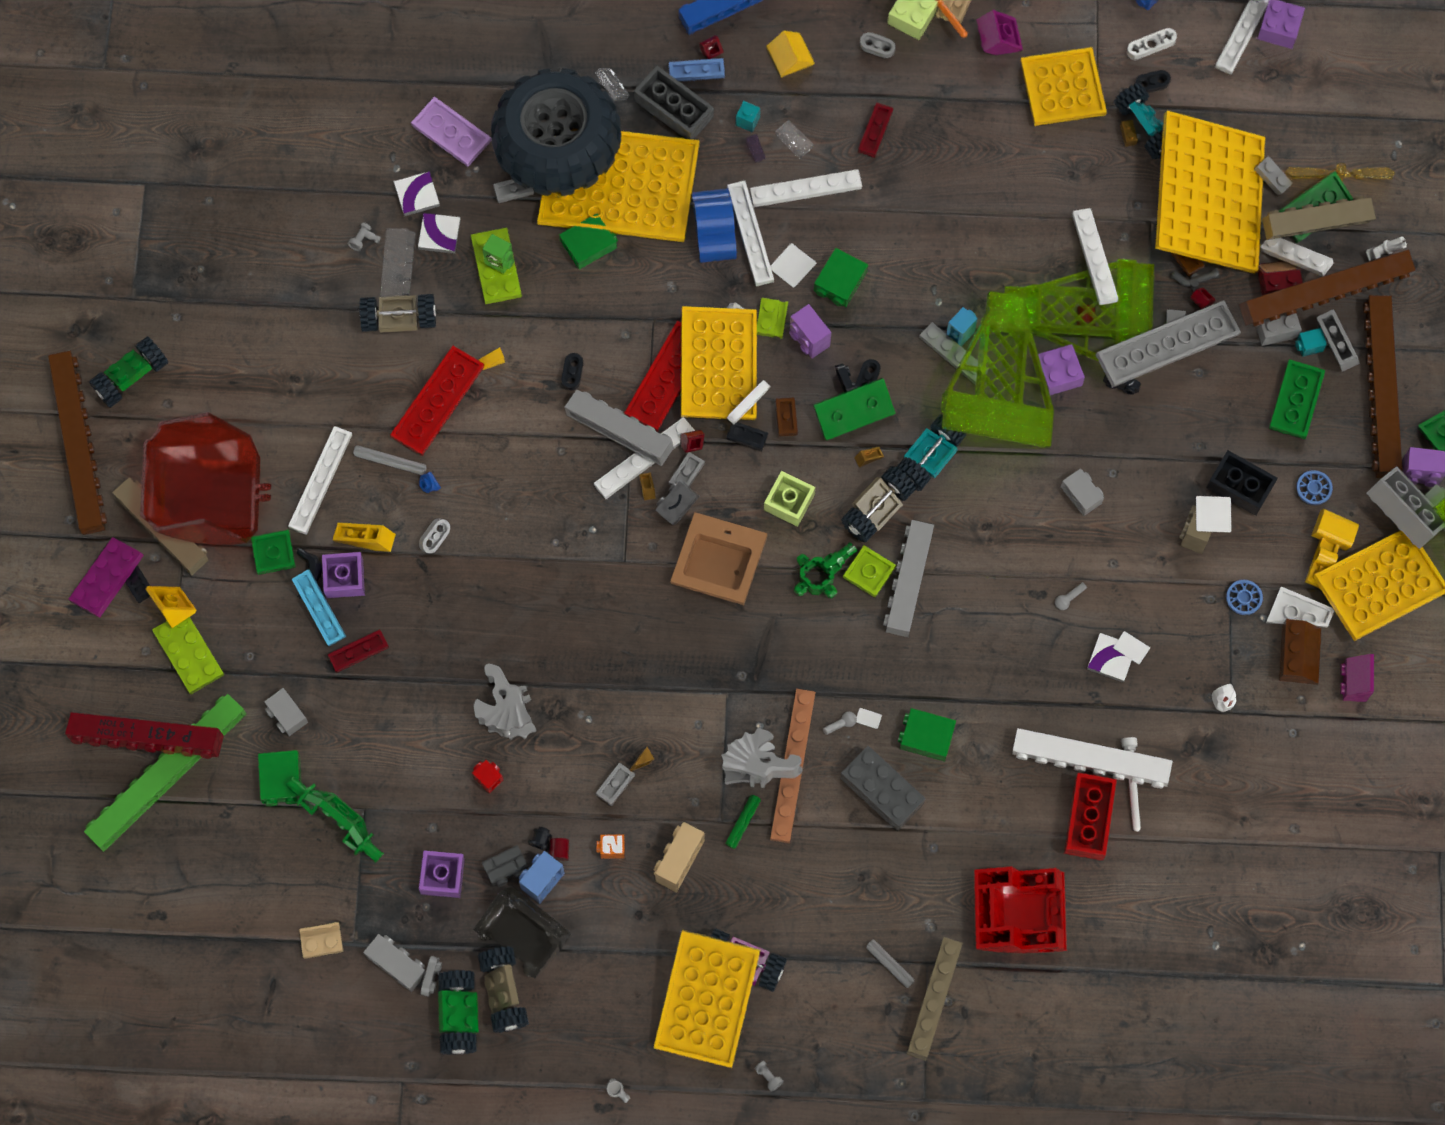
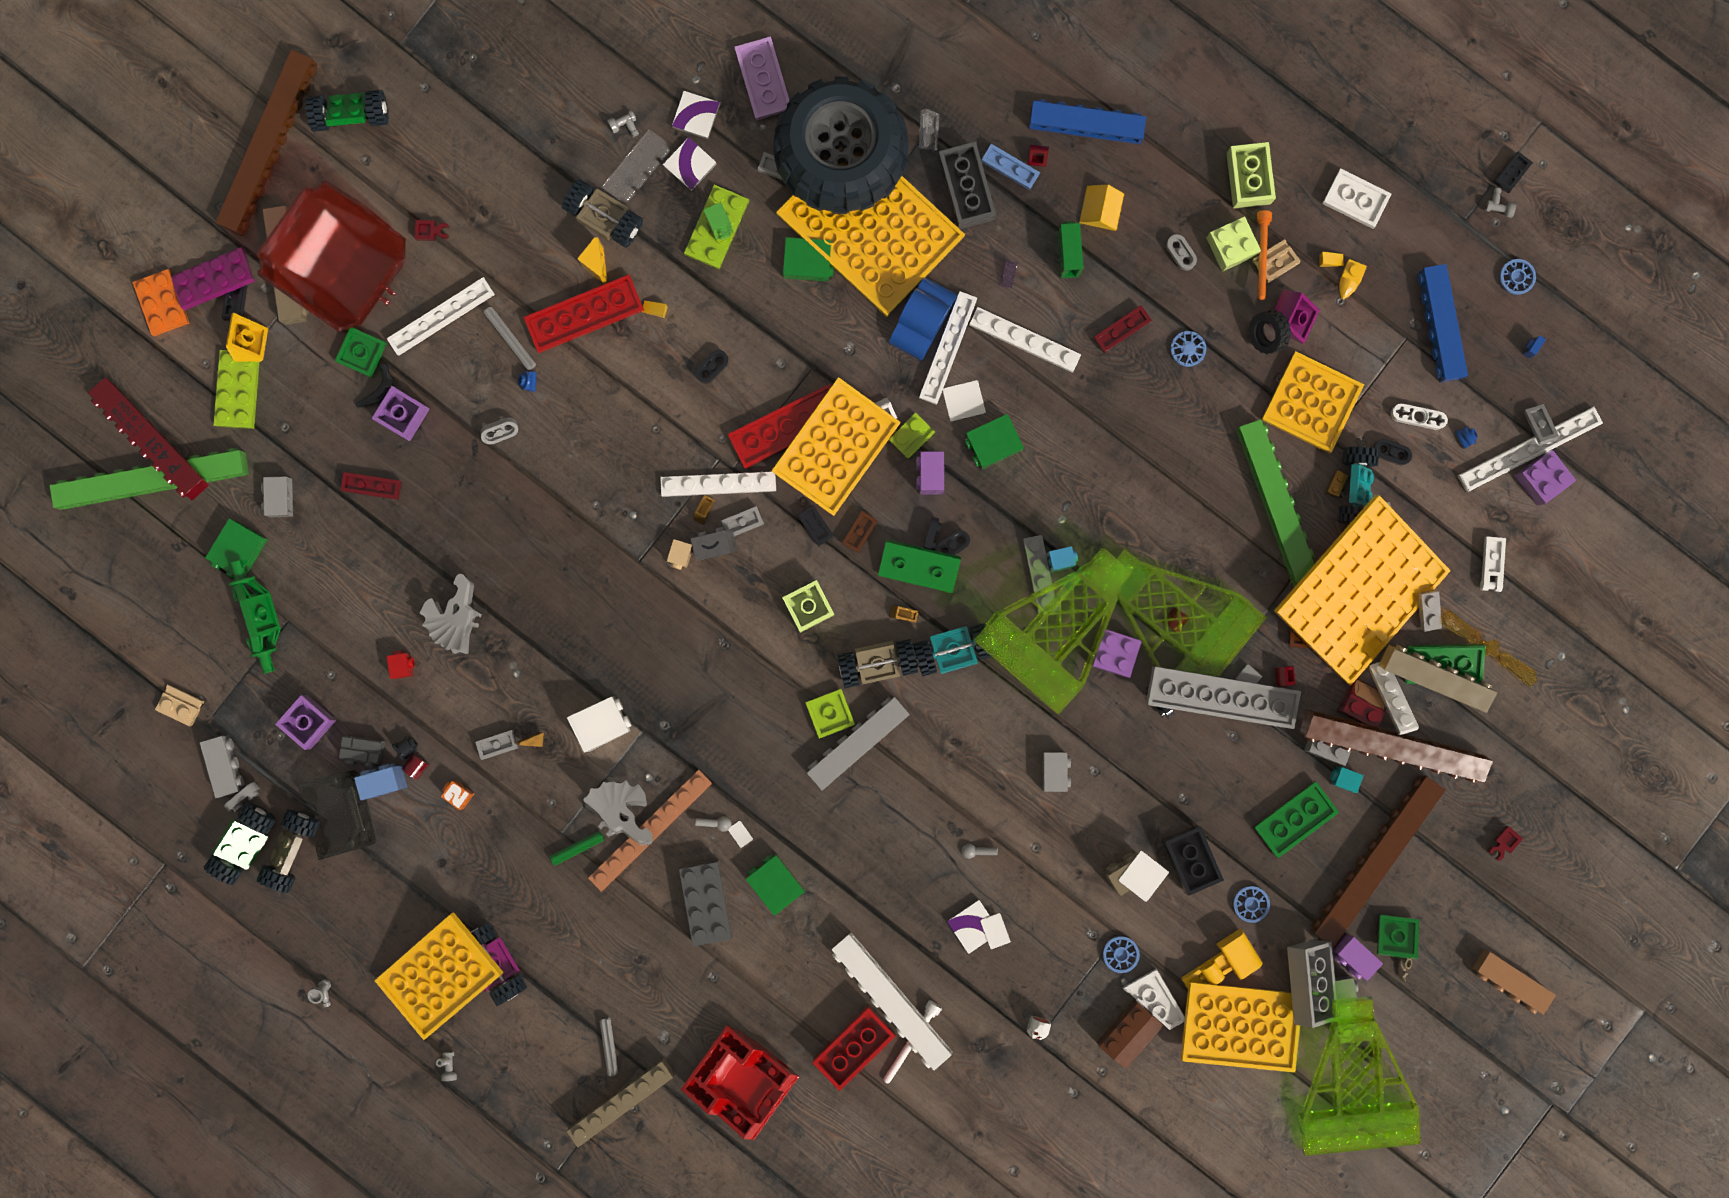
camera: 35 degrees right, 15 degrees up
(73, 627) = (160, 303): none -> orange plate
(260, 422) = (427, 230): none -> dark red plate
(318, 607) = (362, 427): medium azure plate -> none
(365, 536) = (442, 391): yellow slope -> none
(419, 353) = (593, 260): none -> yellow slope
(619, 427) = (713, 445): light grey brick -> none
(654, 531) = (679, 554): none -> tan brick
(679, 856) = (500, 843): tan brick -> none
(688, 706) = (599, 724): none -> white slope
(692, 441) = (766, 498): dark red brick -> none
(718, 561) = (709, 618): medium nougat piece -> none
(747, 116) = (1022, 241): teal brick -> none
(748, 402) = (834, 499): white beam -> none
(791, 97) = (1070, 250): none -> green brick
(794, 139) = (1047, 288): clear plate -> none
(830, 565) = (802, 686): green piece -> none
(937, 111) = (1188, 348): none -> medium blue wheel
(981, 64) = (1281, 328): none -> black tyre
(1092, 174) = (1276, 499): none -> bright green brick
(1095, 256) = (1221, 576): white plate -> none
(1195, 279) = (1293, 653): dark grey piece -> none
(1199, 34) = (1467, 436): none -> blue plate
(1293, 110) = (1493, 563): none -> white plate
(1337, 340) = (1369, 795): light grey brick -> none
(1357, 678) = (1159, 1092): magenta slope -> none
(1386, 247) = (1477, 742): white piece -> none

